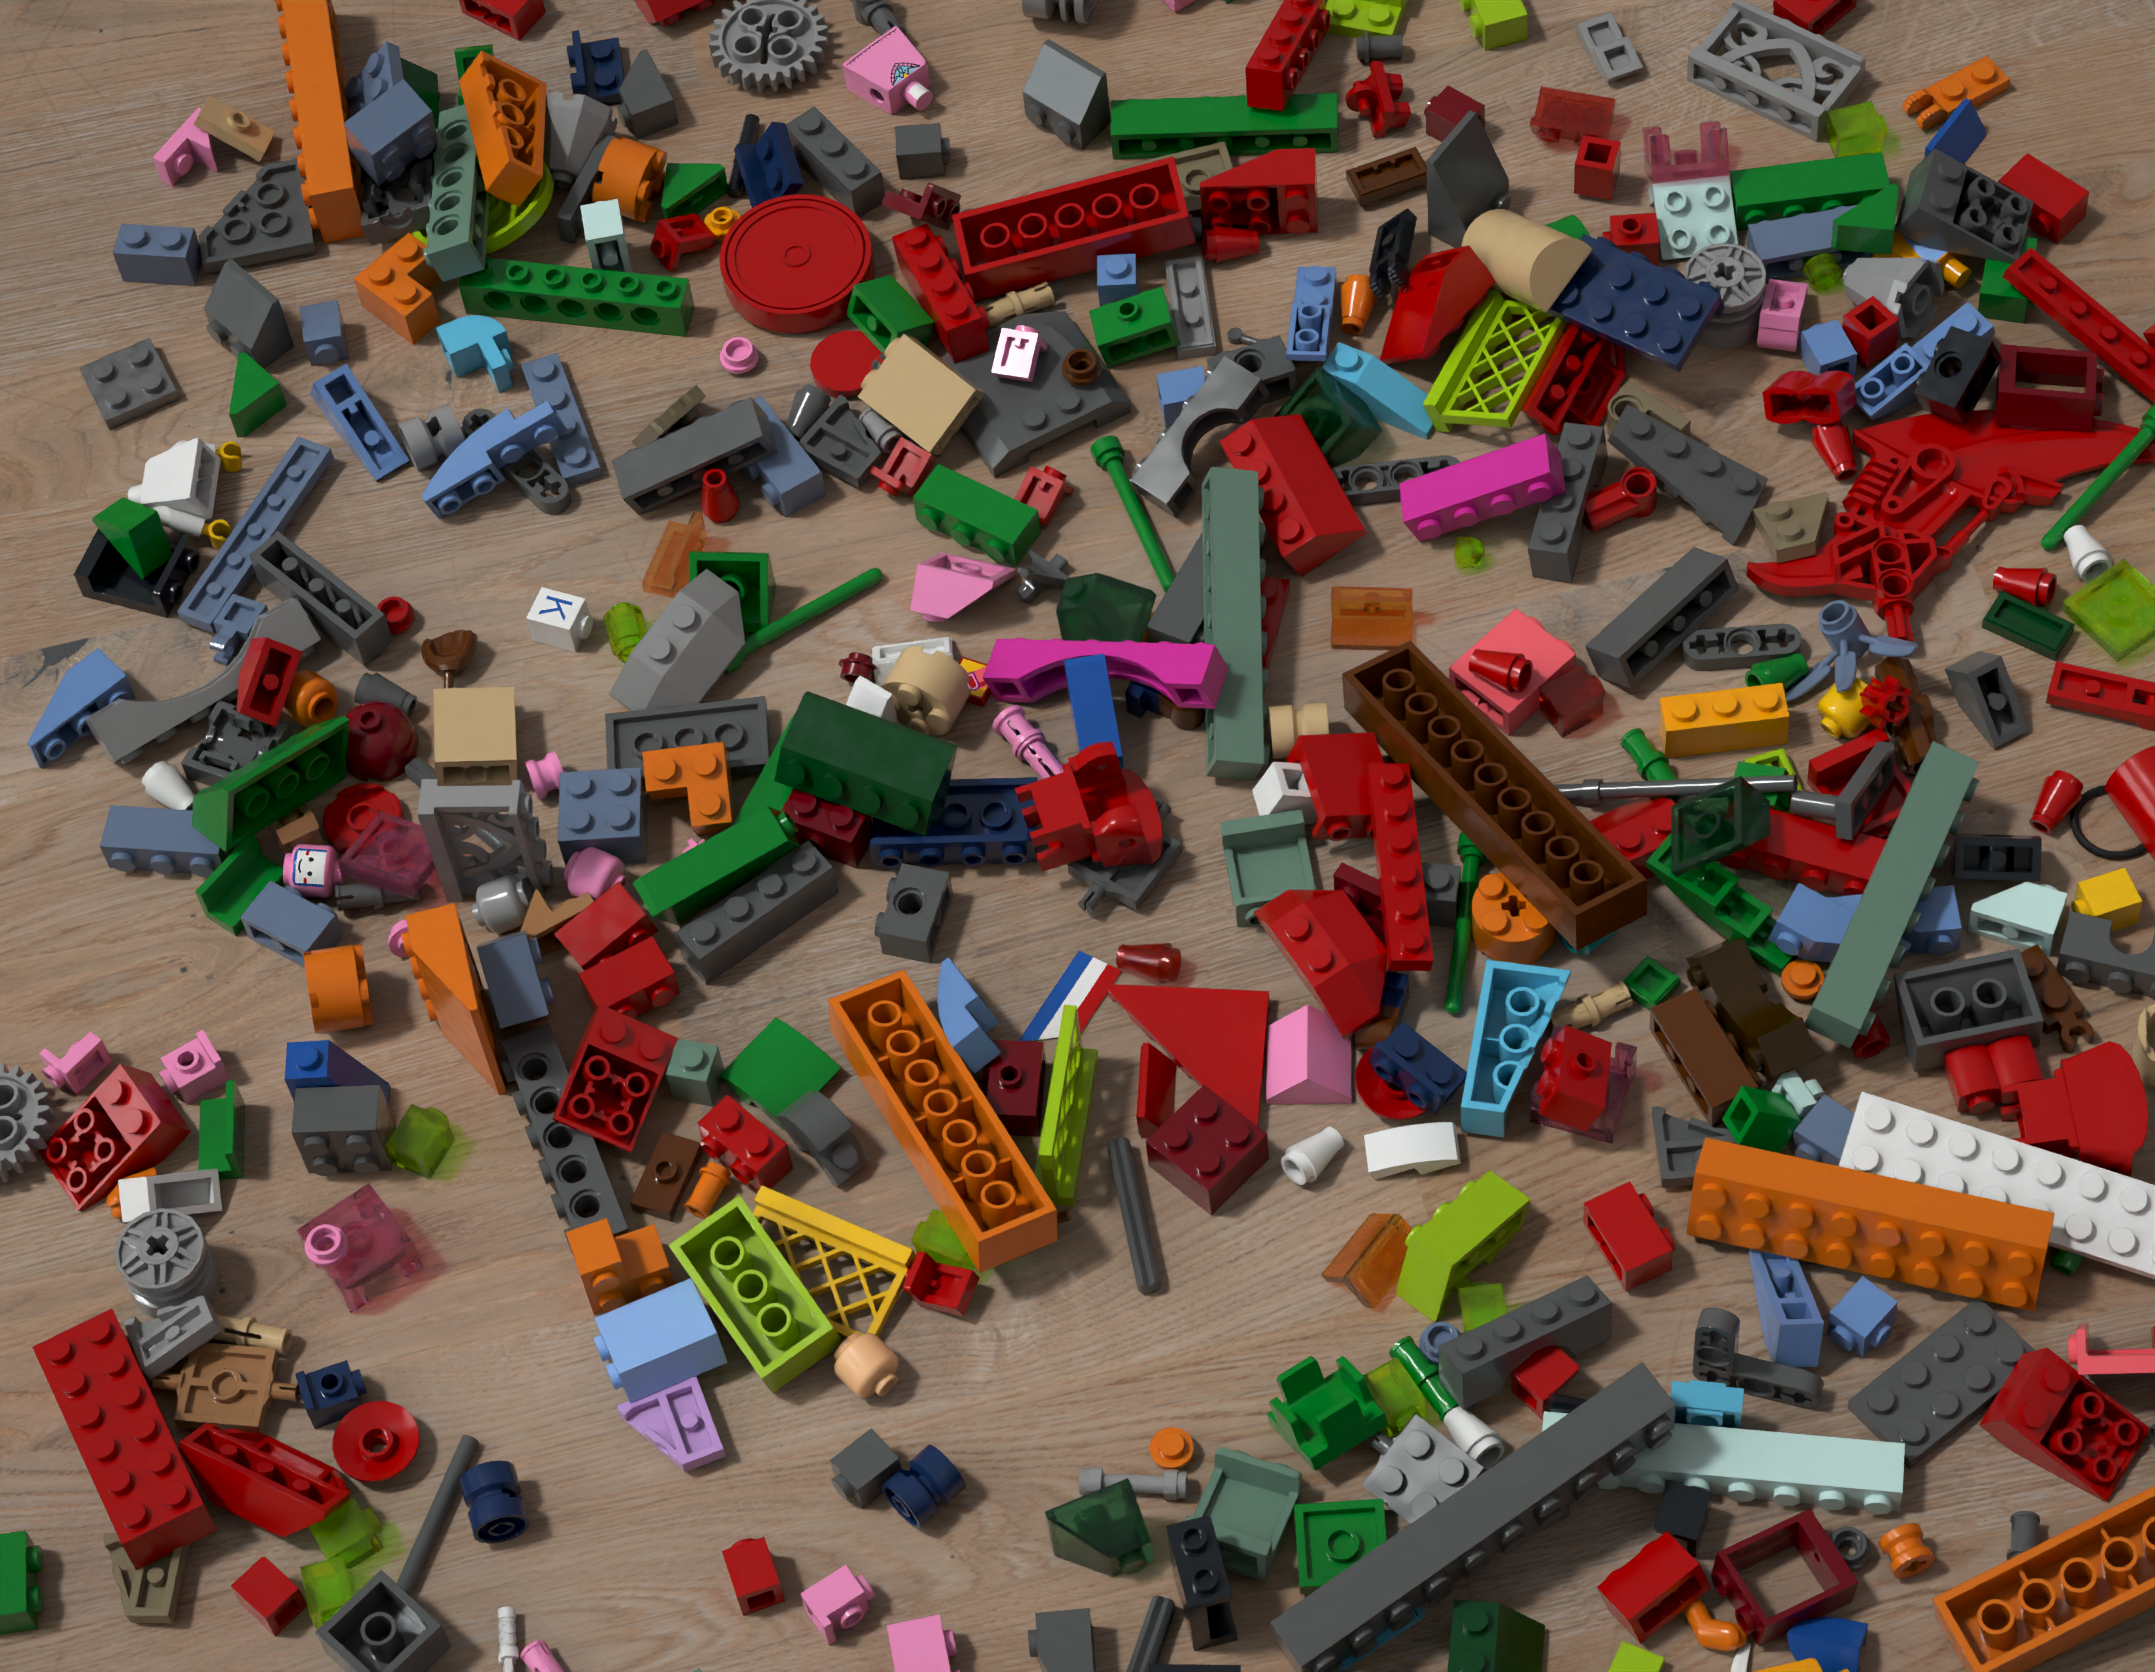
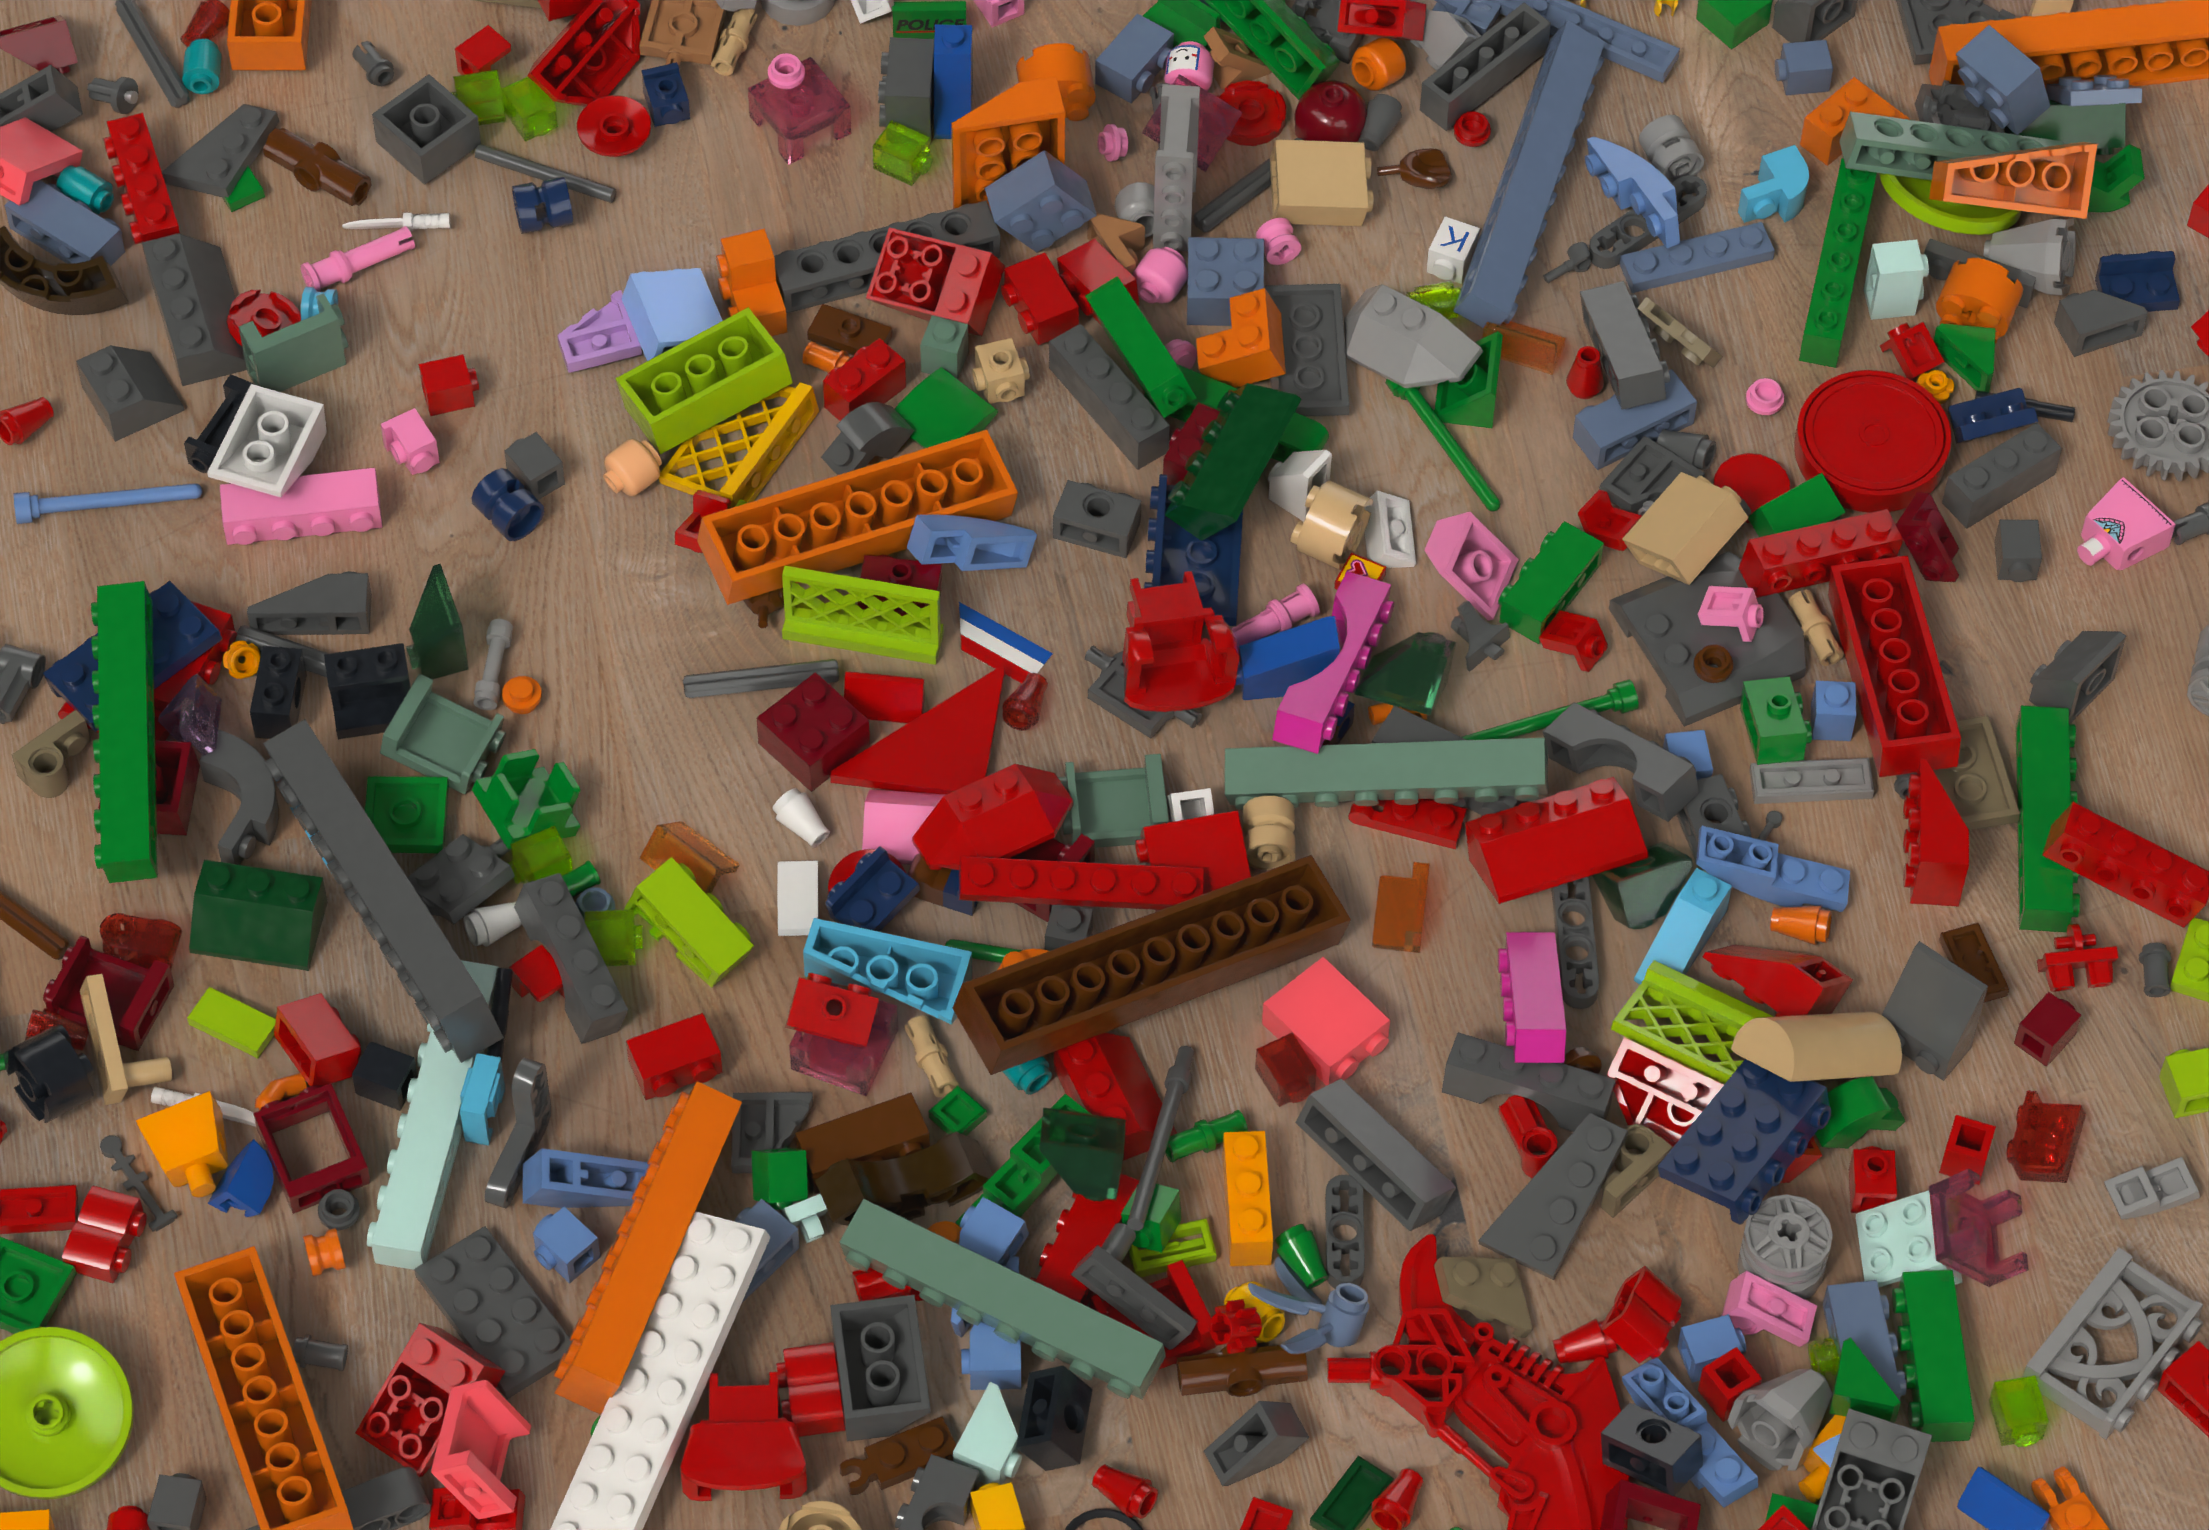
camera: 85 degrees right, 0 degrees up
(358, 422) = (1700, 90): medium blue slope -> none
(472, 549) = (1530, 177): none -> sand blue brick
(564, 515) = (1579, 261): none -> dark grey hand
(729, 1013) = (1000, 371): none -> tan brick
(857, 665) = (1376, 480): dark red plate -> none
(1228, 243) = (1887, 813): red cone -> none
(1392, 253) = (1853, 950): black hinge -> none
(1468, 552) = (1479, 998): clear neon green hinge -> none
(1503, 669) = (1305, 993): red cone -> none

